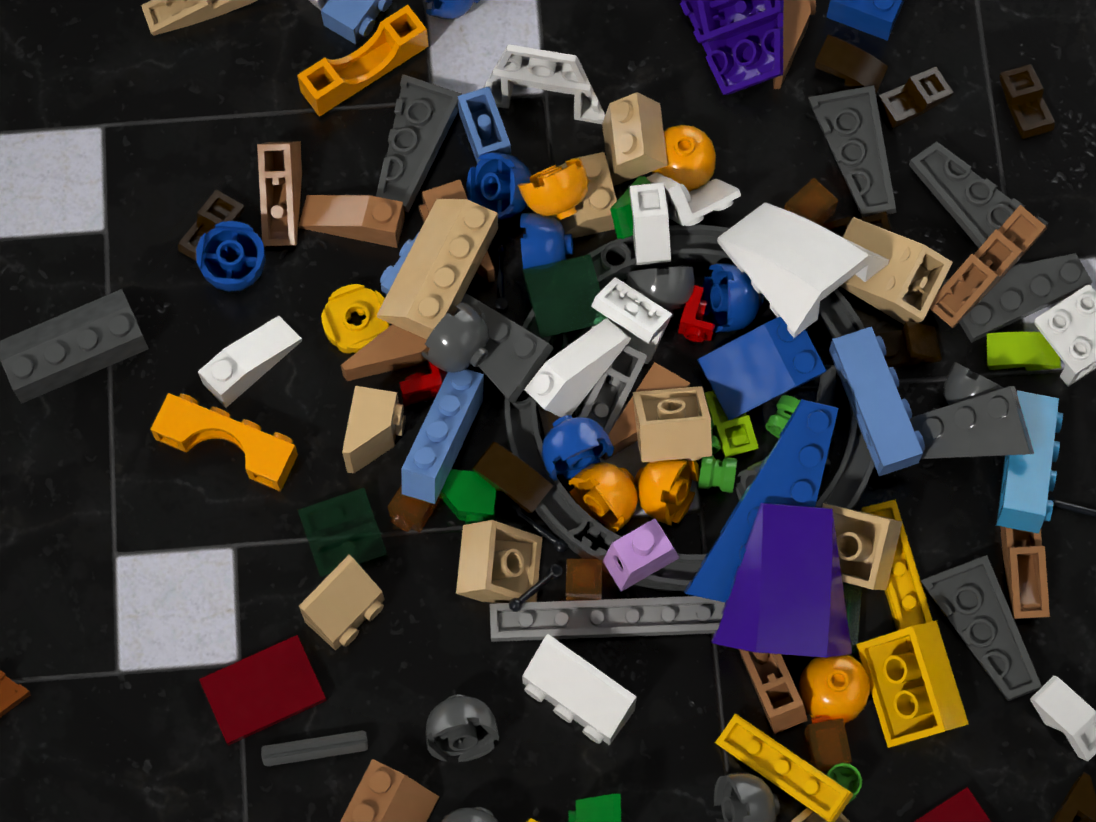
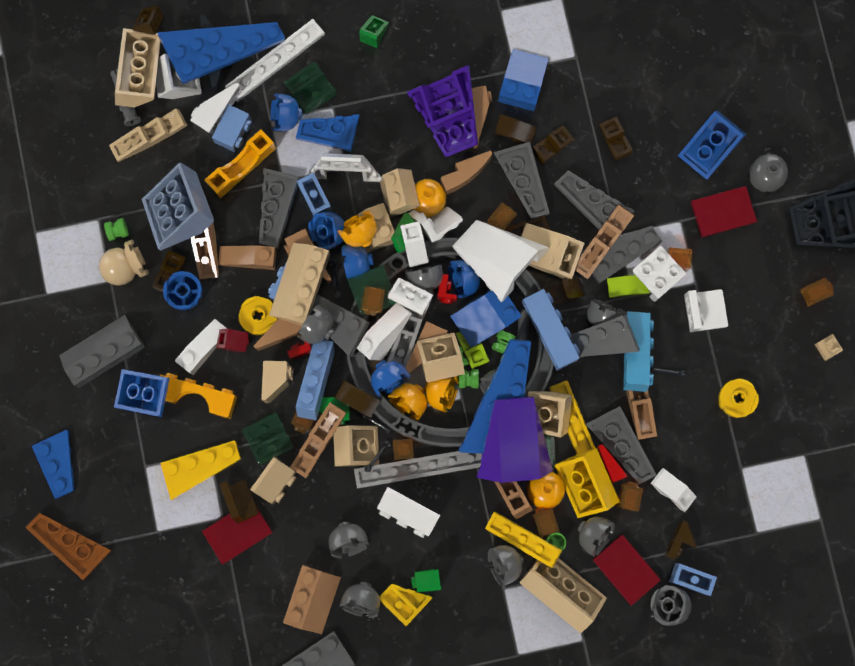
camera: 10 degrees left, 10 degrees up
(129, 200) = (120, 265): none -> tan tile
(130, 143) = (116, 229): none -> bright green wheel
(130, 417) = (141, 392): none -> blue slope
(199, 568) = (192, 469): none -> yellow wing
(243, 114) = (177, 207): none -> sand blue slope
(275, 633) = (239, 501): none -> dark brown panel
(305, 352) = (232, 340): none -> dark red brick
(314, 748) = (270, 560): dark grey axle -> none
(433, 542) = (318, 440): none -> medium nougat slope
(523, 26) = (329, 132): none -> blue wing
(564, 306) = (372, 300): none -> clear orange brick
(640, 554) = (432, 434): lavender torso -> none
(755, 123) = (465, 172): none -> medium nougat slope
(917, 776) = (594, 534): none -> dark grey cylinder
(964, 666) = (613, 469): none -> red slope
(989, 720) = (630, 496): none -> clear orange brick

